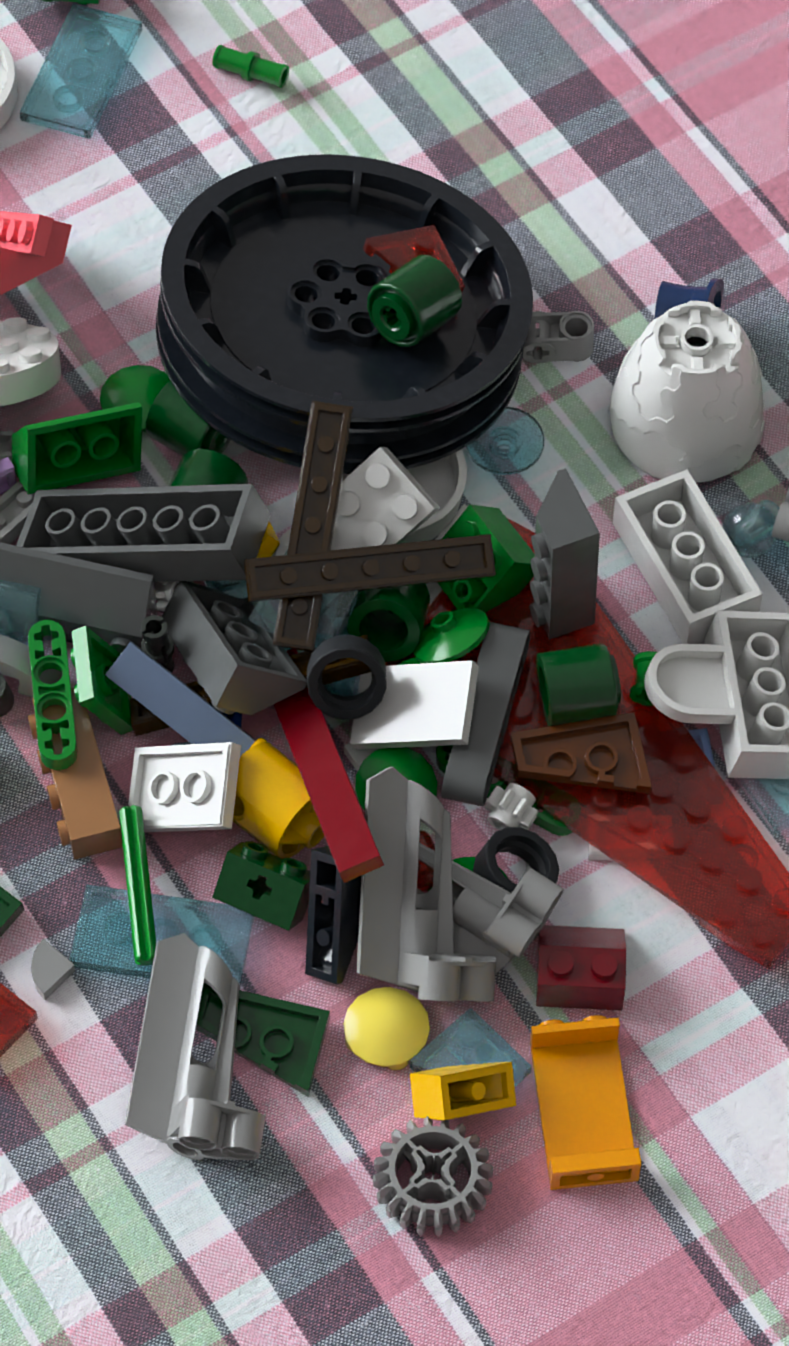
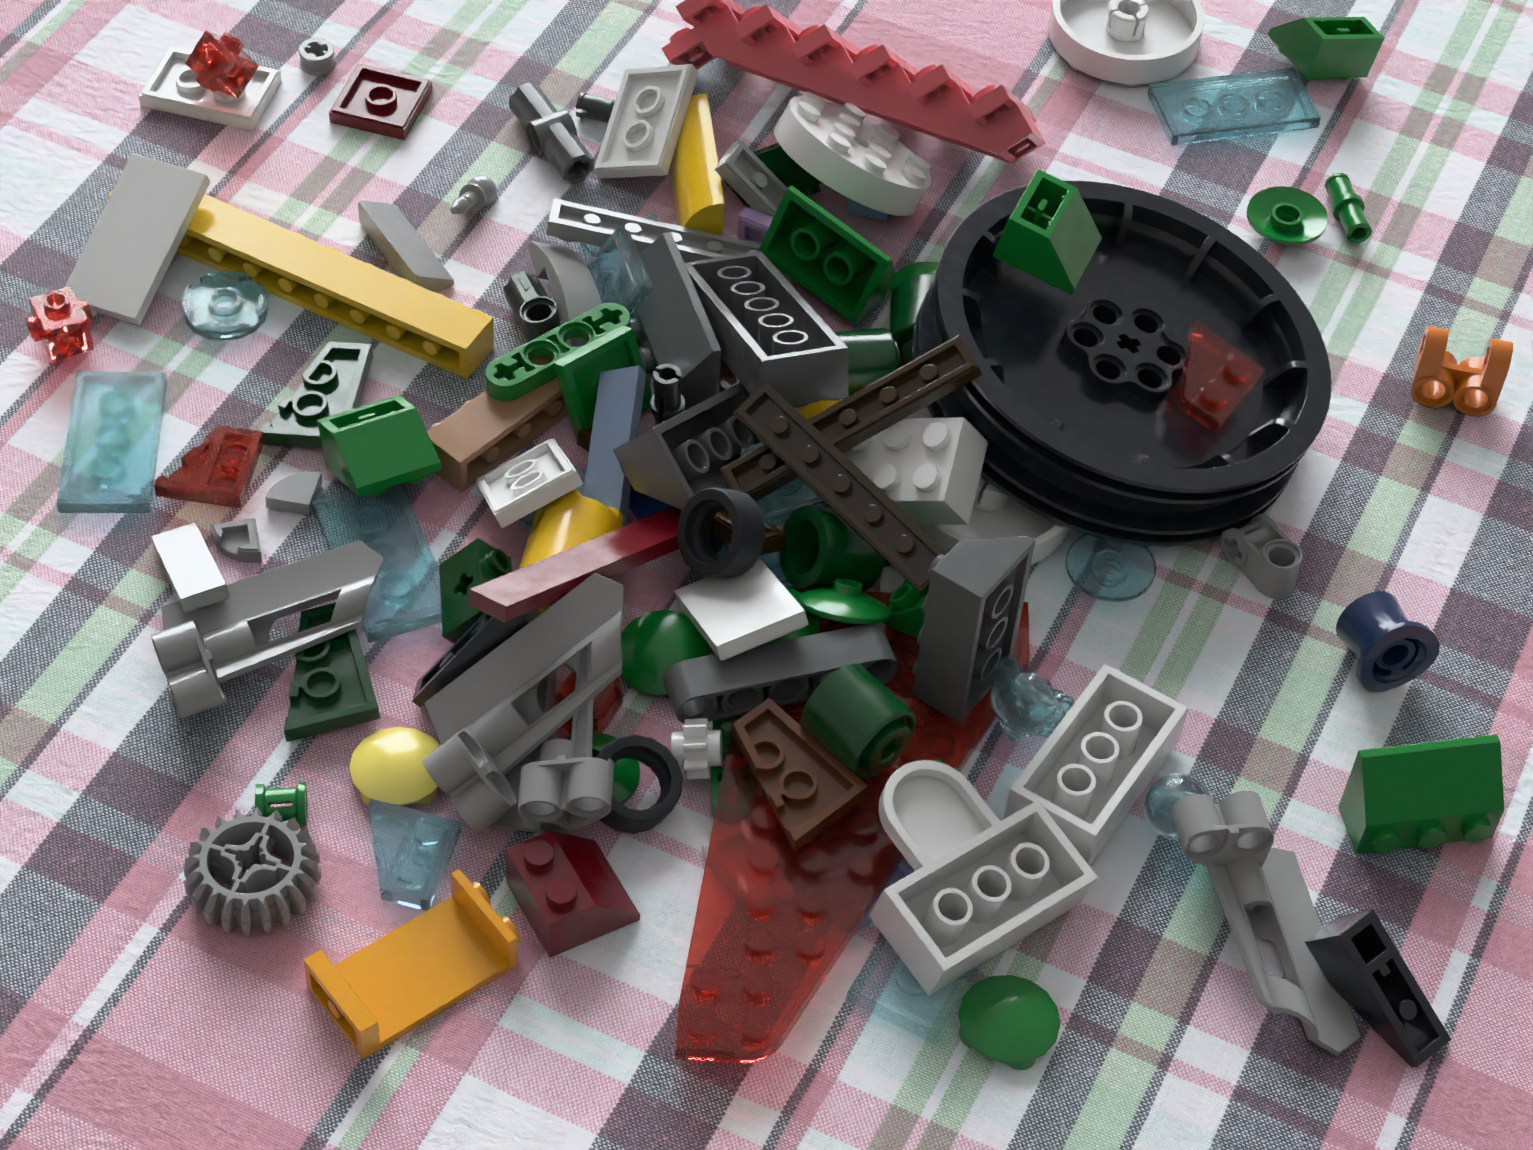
camera: 55 degrees right, 10 degrees down
(61, 880) = (378, 446): none -> green slope
(71, 1036) = (237, 540): none -> light grey tile
(95, 1082) = (190, 567): none -> tile
(138, 884) = (418, 502): green axle -> none
(234, 110) = (1287, 215): none -> green dish
(238, 281) = (1050, 233): none -> green slope
(378, 1125) = (297, 795): none -> green bush
(414, 301) = (1155, 379): dark green piece -> none
(462, 1090) = (356, 849): yellow slope -> none
(485, 104) = (1471, 384): none -> orange piece
(616, 568) = (1026, 702): none -> clear light blue hair
(689, 395) = (1279, 672): white piece -> none

